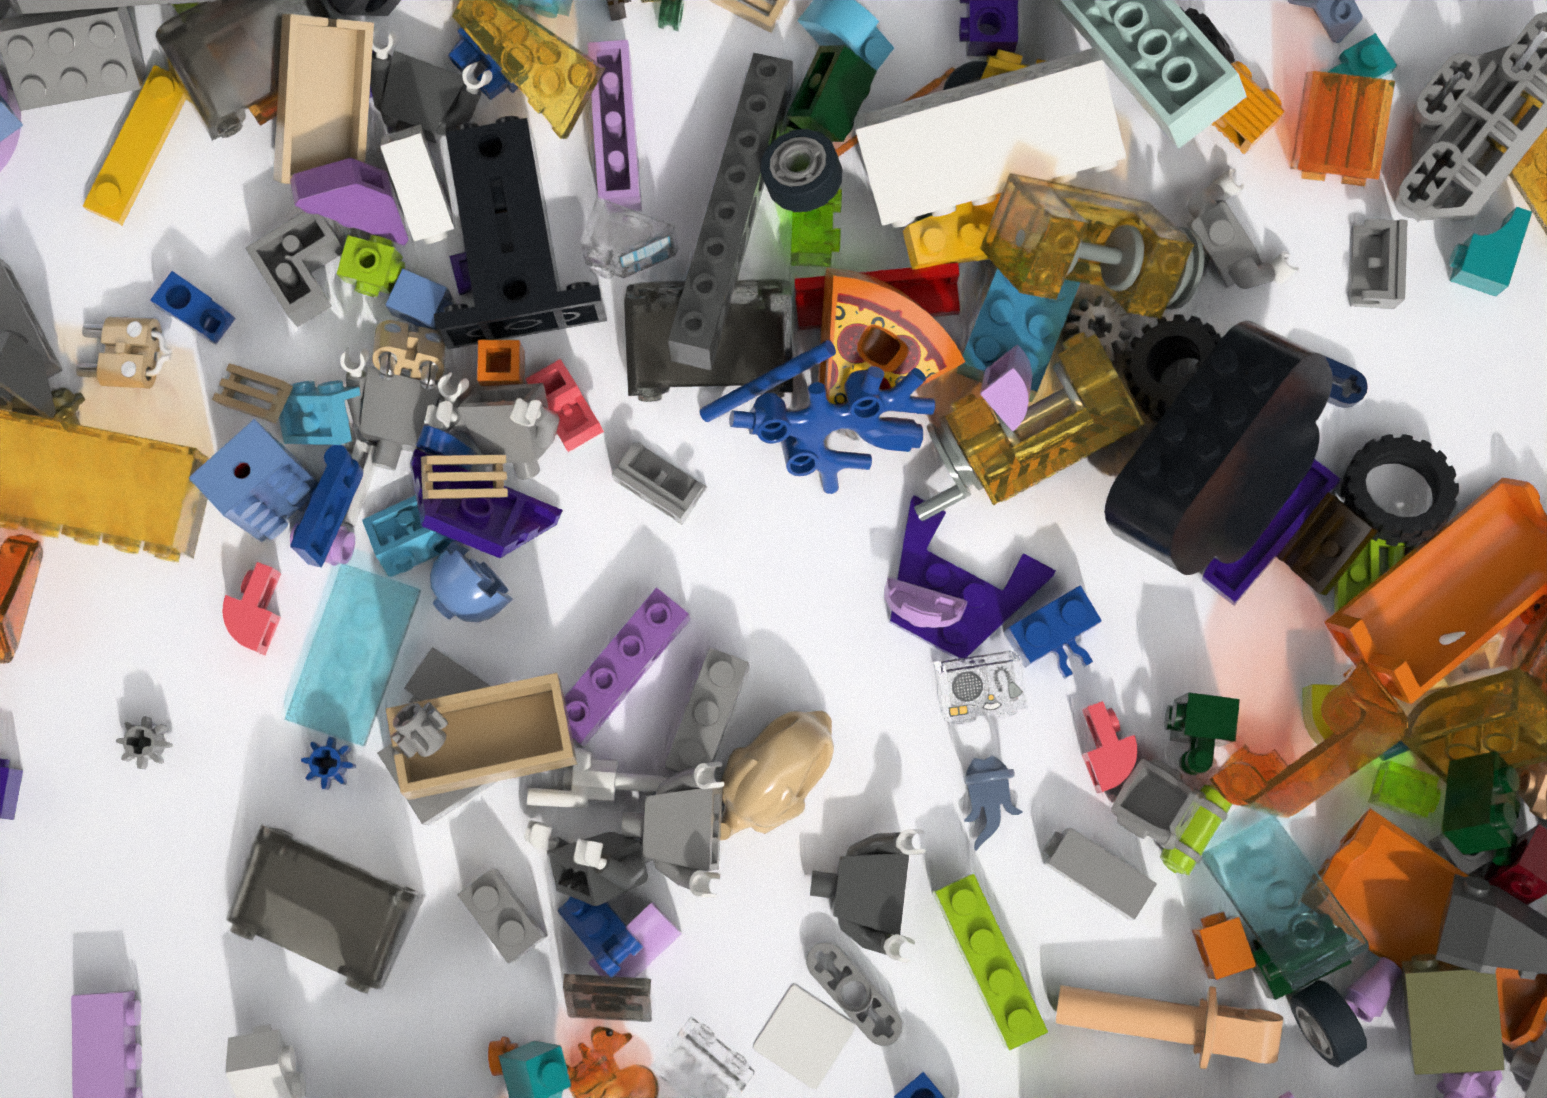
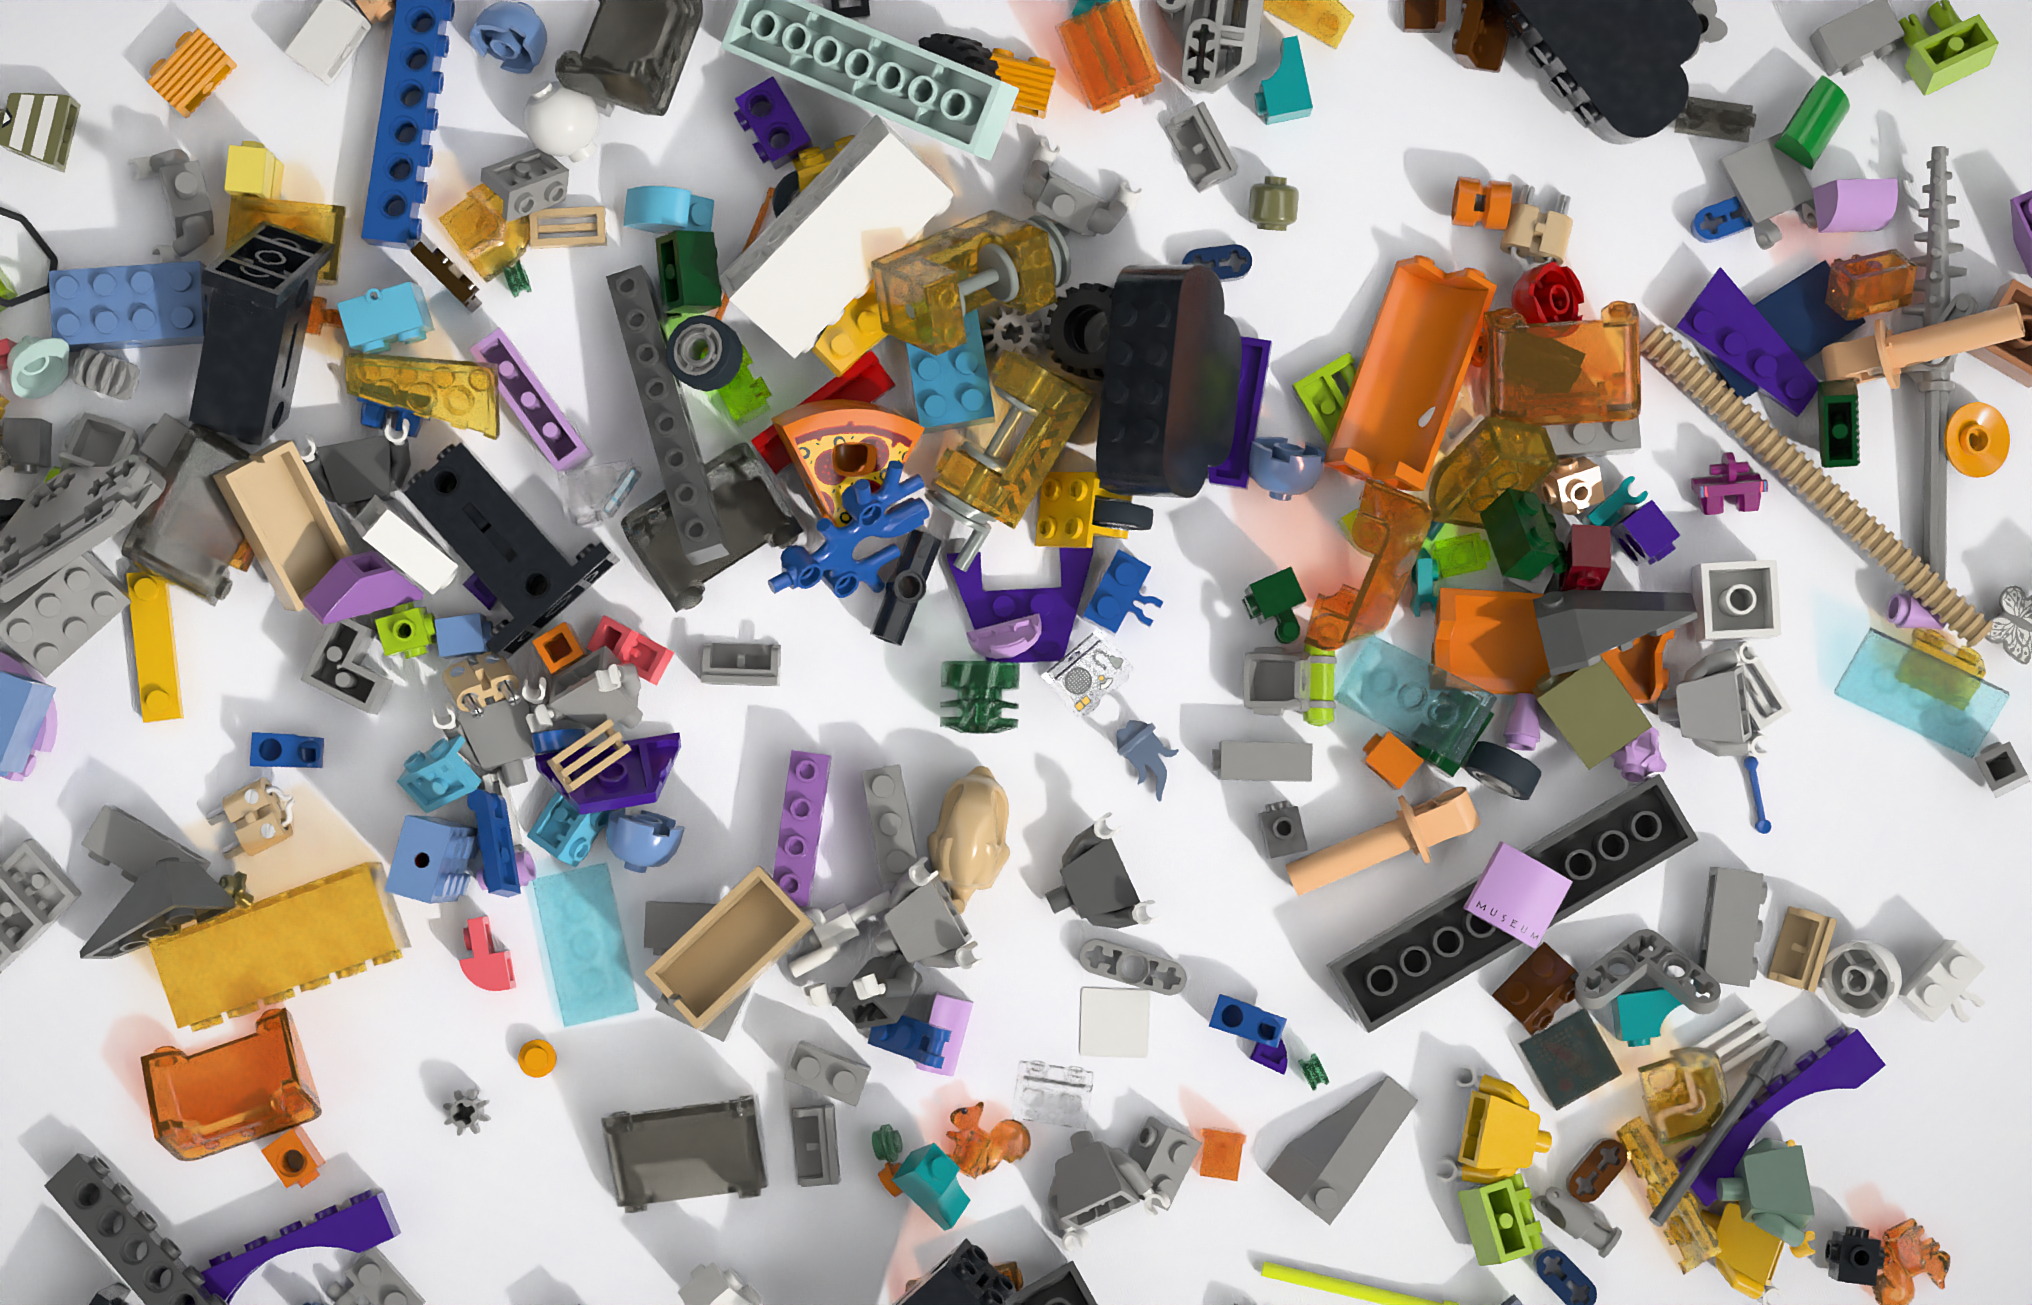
camera: 30 degrees left, 5 degrees up
(233, 385) = (356, 793): tan tile -> none
(241, 733) = (537, 1058): none -> light orange plate
(334, 773) = (629, 1045): blue gear -> none
(419, 729) = (681, 973): light grey gear -> none
(449, 979) = (816, 1145): none -> light grey hinge
(516, 1018) = (887, 1143): none -> clear green plate
(608, 997) = (948, 1085): clear smoke tile -> none
(768, 381) = (779, 536): blue bar -> none
(865, 643) = (979, 695): none -> clear green wheel
(877, 487) = (896, 610): none -> black piece
(990, 962) = (1221, 880): lime brick -> none
(1008, 386) = (970, 429): lavender brick -> none
(1055, 530) = (1071, 512): none -> yellow plate
(1077, 949) = (1282, 830): none -> flat silver brick
(1113, 757) = (1223, 666): coral brick -> none
(1285, 605) = (1285, 467): none -> medium blue cylinder
(1327, 544) = (1290, 399): dark brown plate -> none
(1353, 793) = (1421, 579): none -> teal plate
(1417, 354) = (1273, 204): none -> olive head
(1424, 461) = (1316, 286): black tyre -> none

